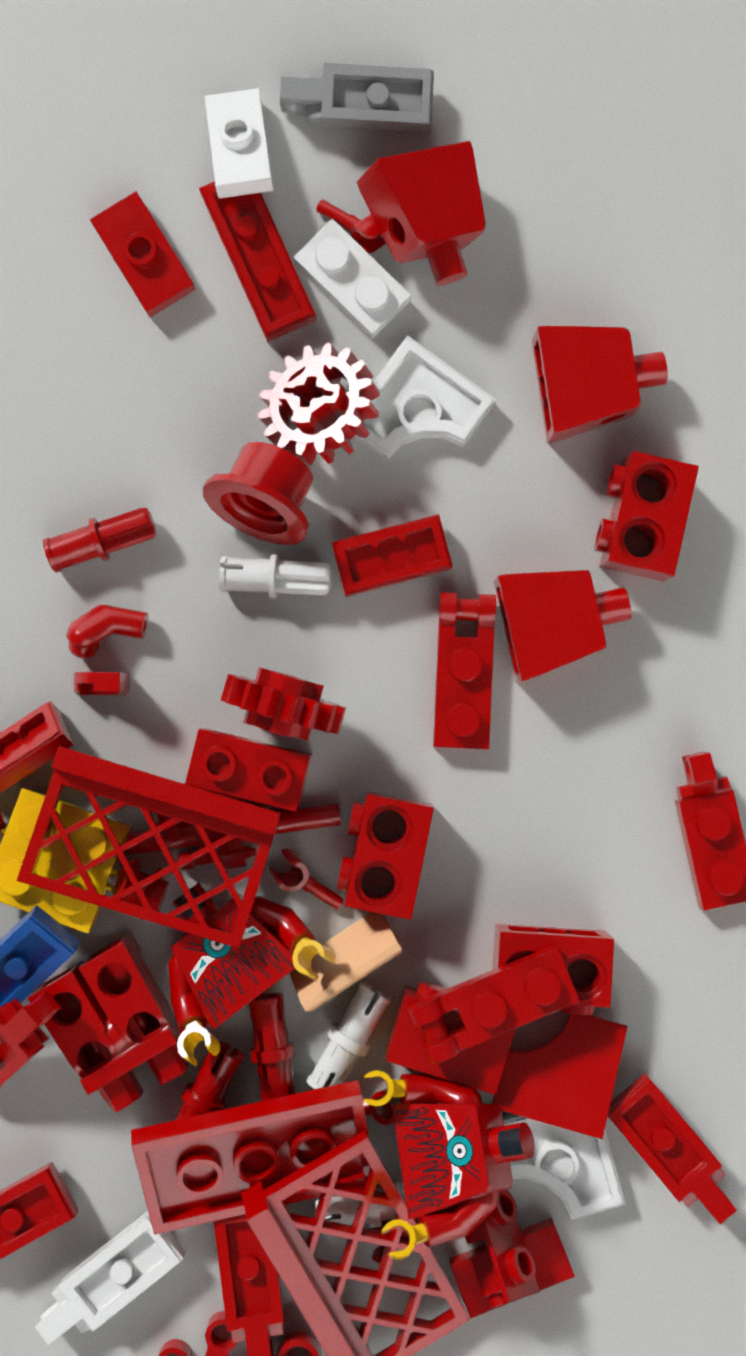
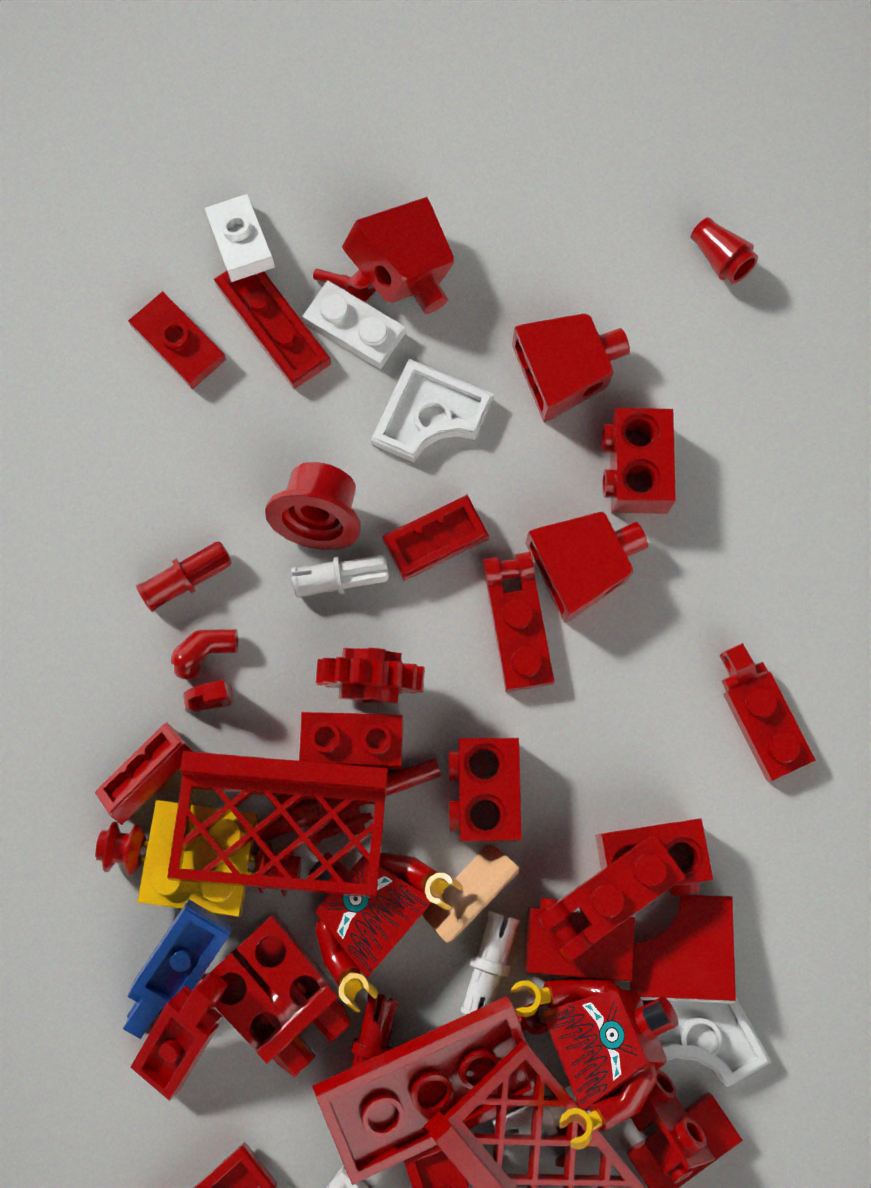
camera: 15 degrees left, 10 degrees down
(271, 1047) = (421, 985): red pin -> none
(299, 878) = (417, 830): red hand -> none
(318, 404) = (348, 425): gear -> none
(362, 97) = (331, 184): light grey hinge -> none
(670, 1147) = (798, 999): red hinge -> none

